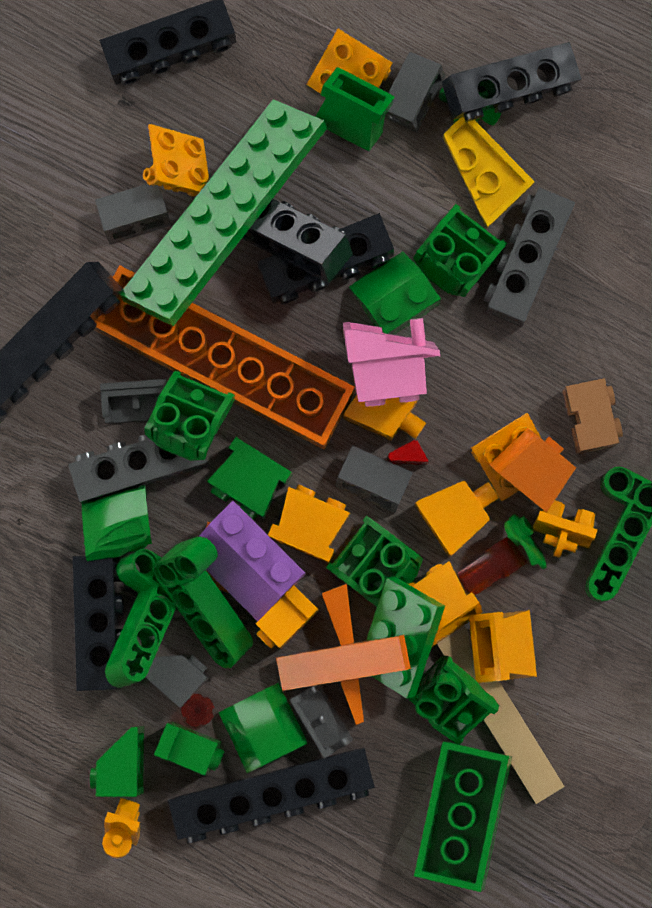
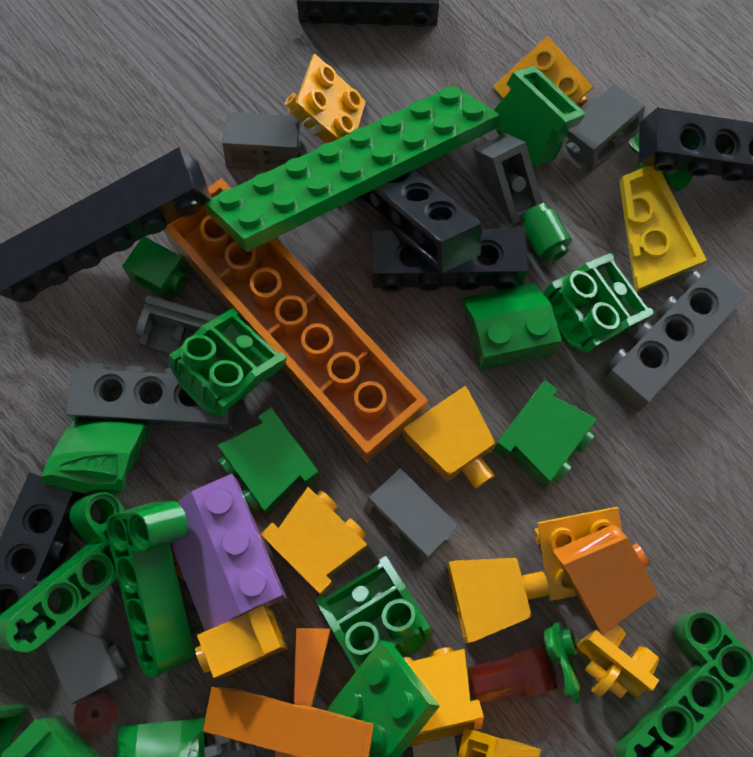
camera: 15 degrees right, 10 degrees down
(95, 357) = (156, 269): none -> green brick
(350, 168) = (509, 175): none -> dark grey slope
(388, 363) = (476, 382): bright pink piece -> none
(397, 206) = (546, 233): none -> green brick
(408, 454) = (461, 503): red slope -> none
(456, 376) = (546, 436): none -> green hips
(593, 414) = (694, 540): medium nougat brick -> none

